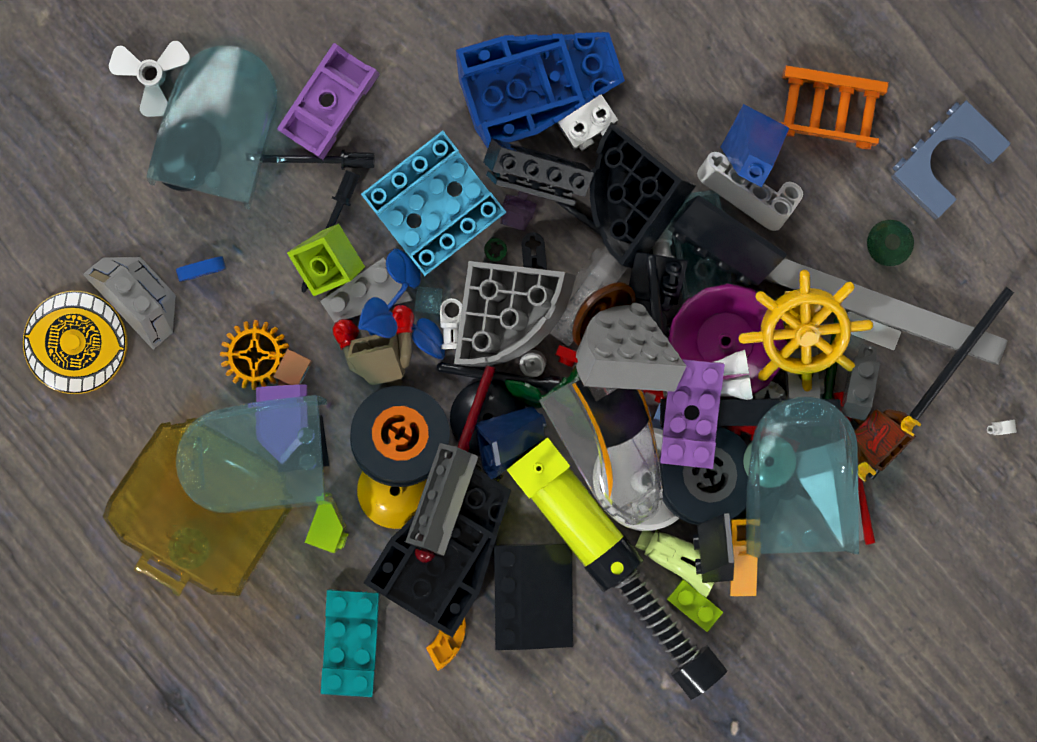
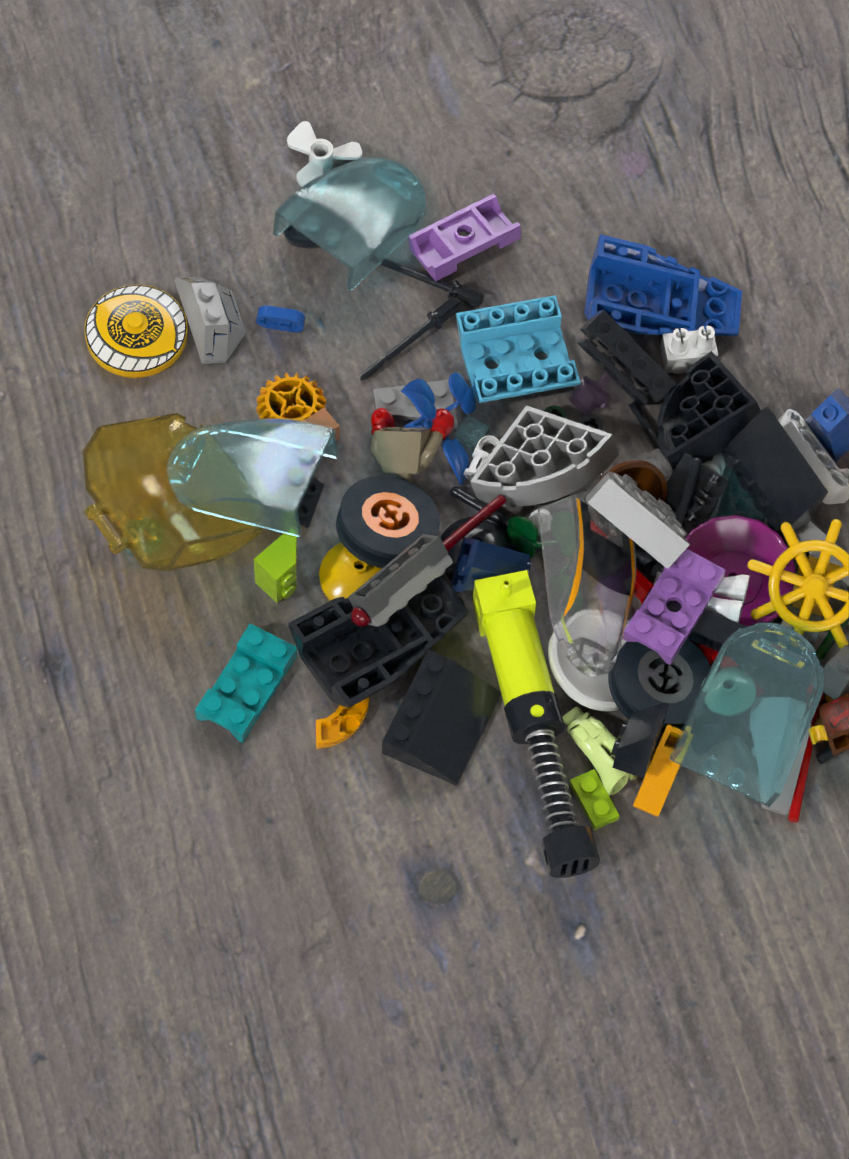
camera: 20 degrees right, 25 degrees down
(326, 260) = (396, 355): lime slope -> none

